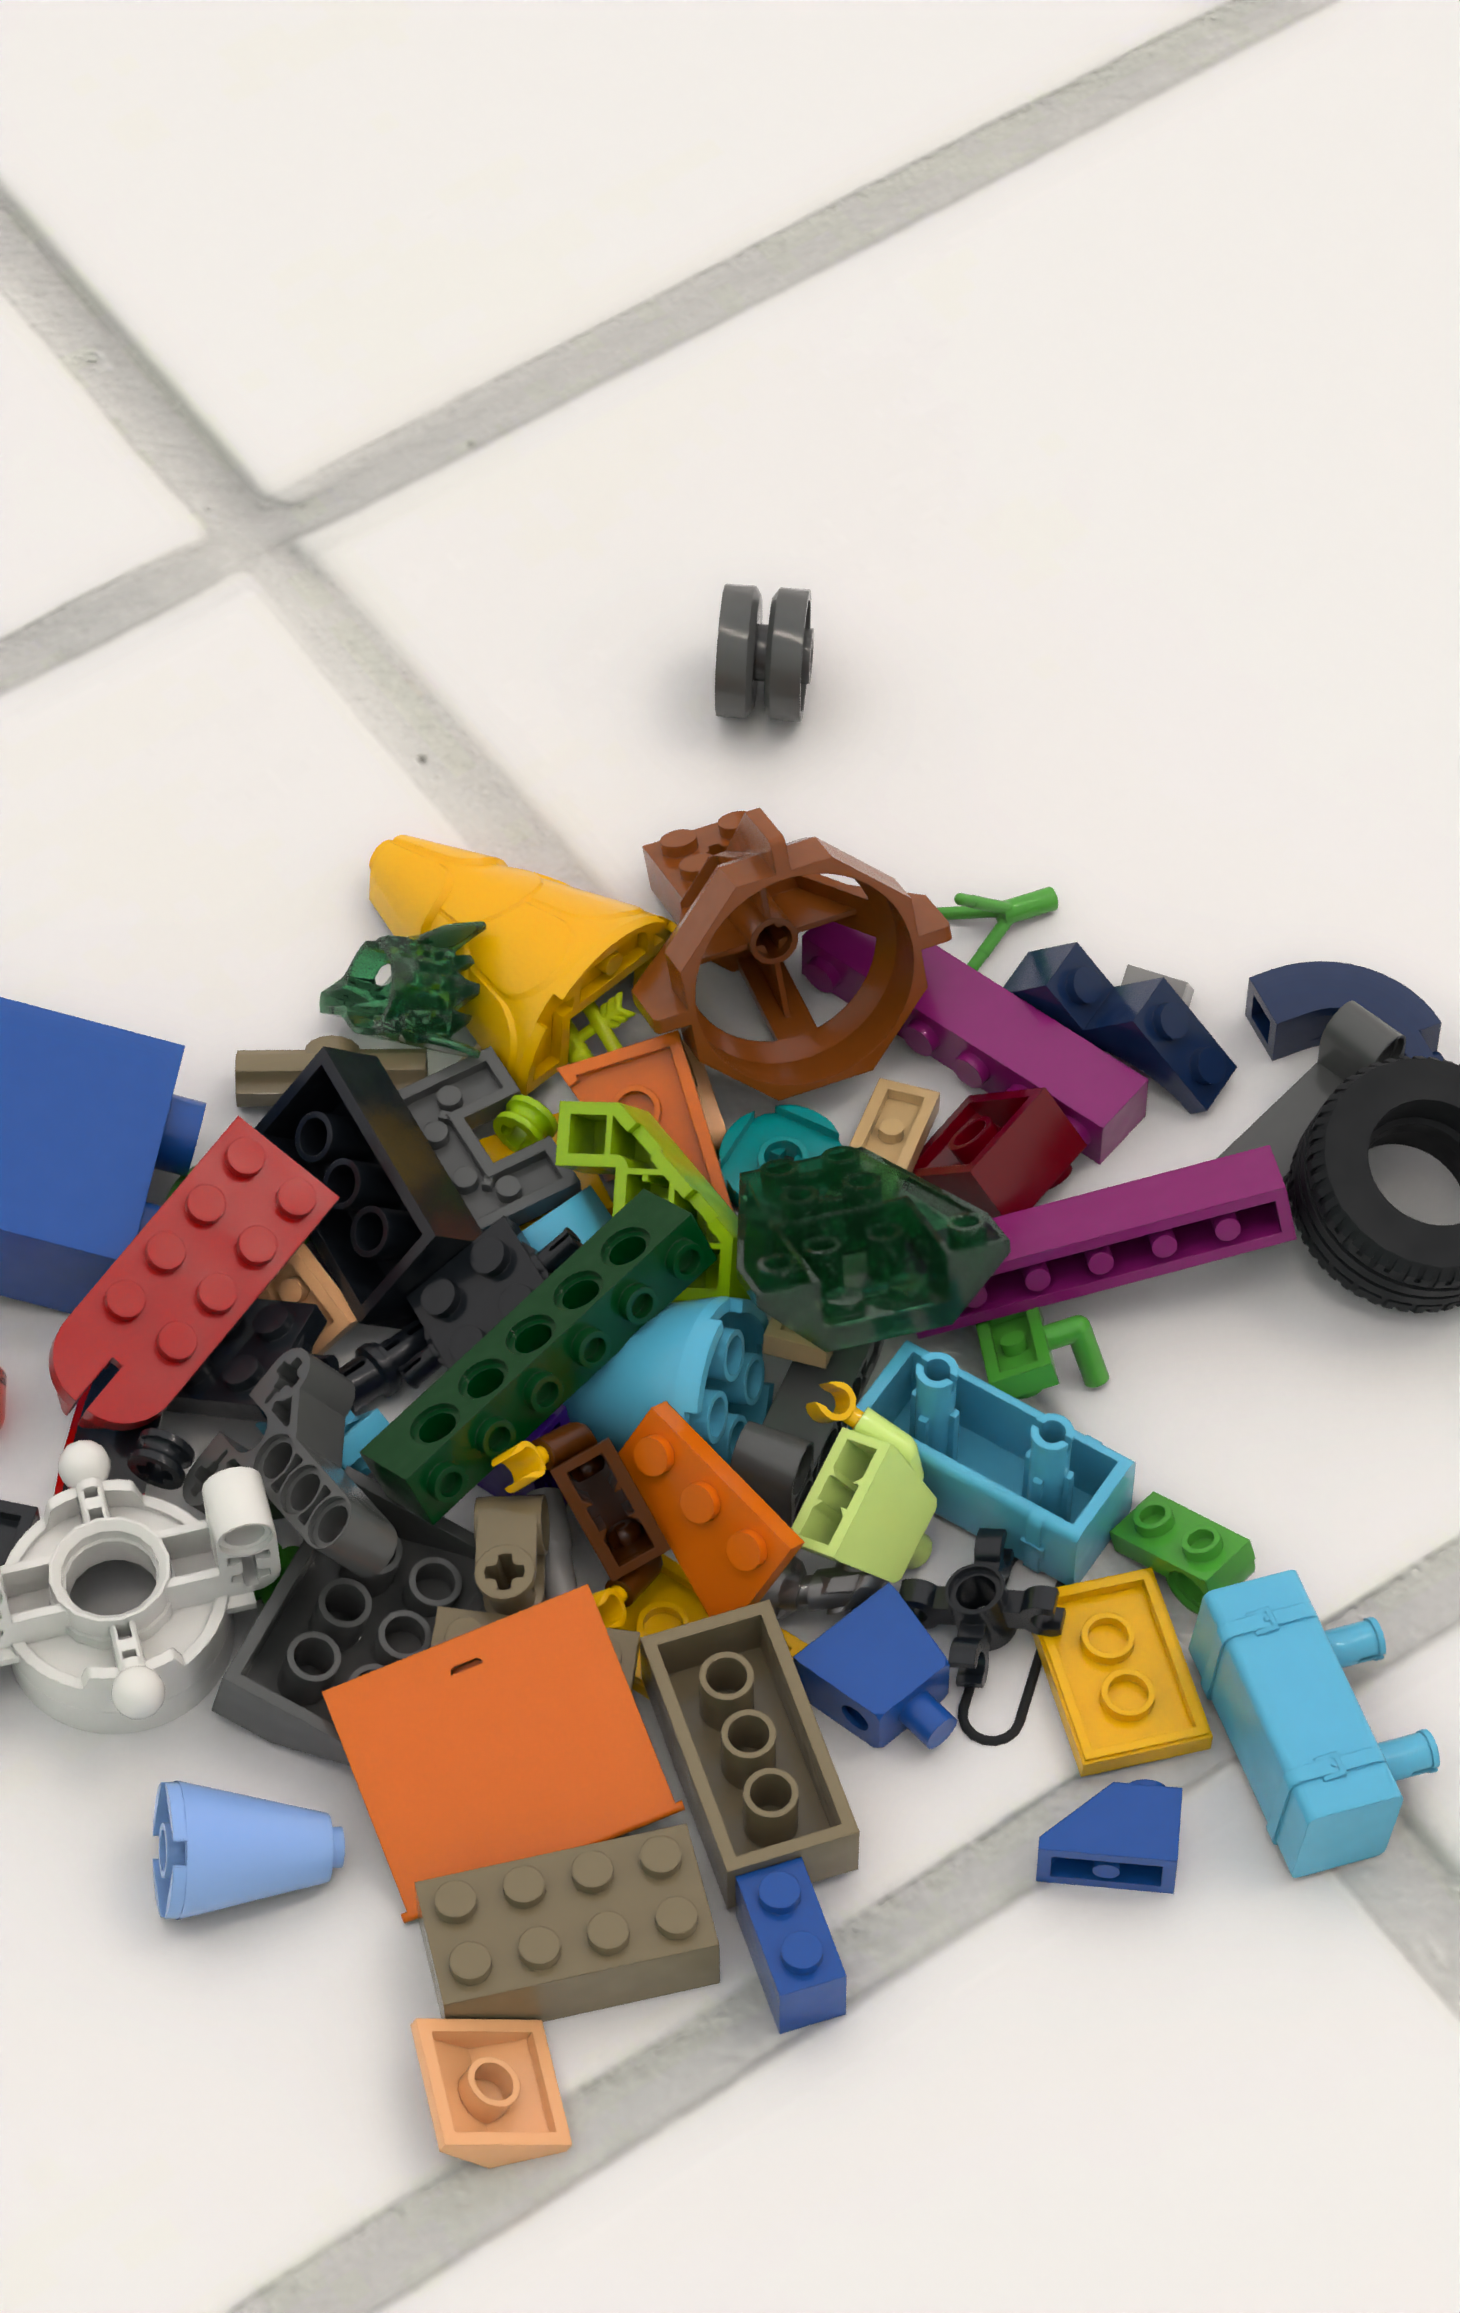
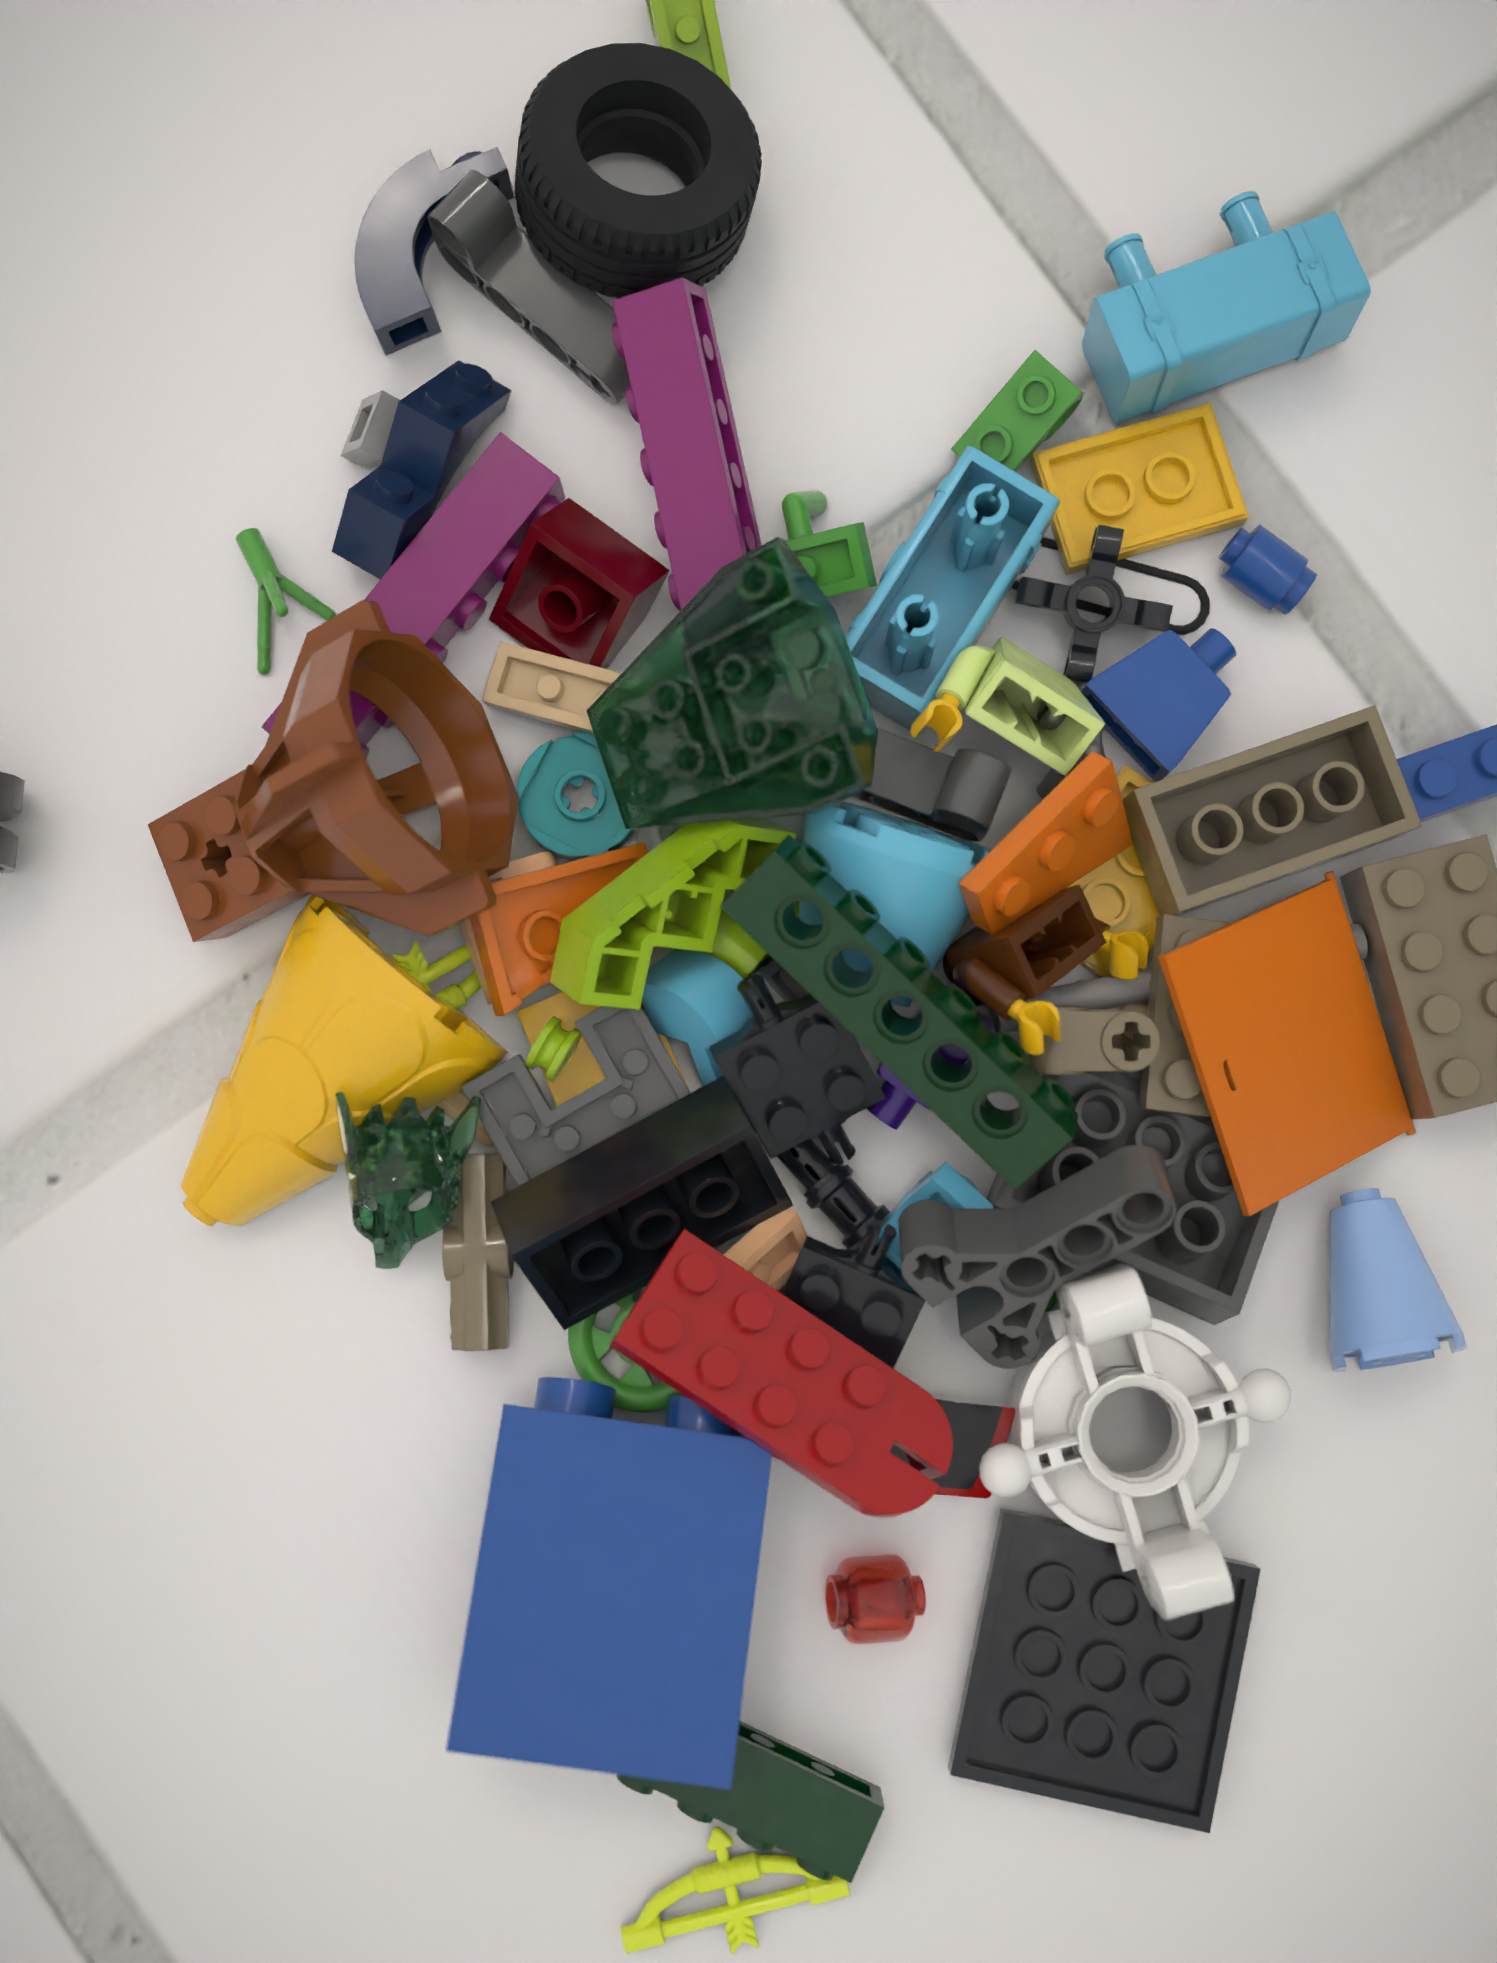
camera: 90 degrees left, 30 degrees up
(161, 1458) = (985, 1392): black bush -> none
(1024, 1780) = (1266, 569): none -> blue brick
(1117, 1840) = (1325, 484): blue slope -> none

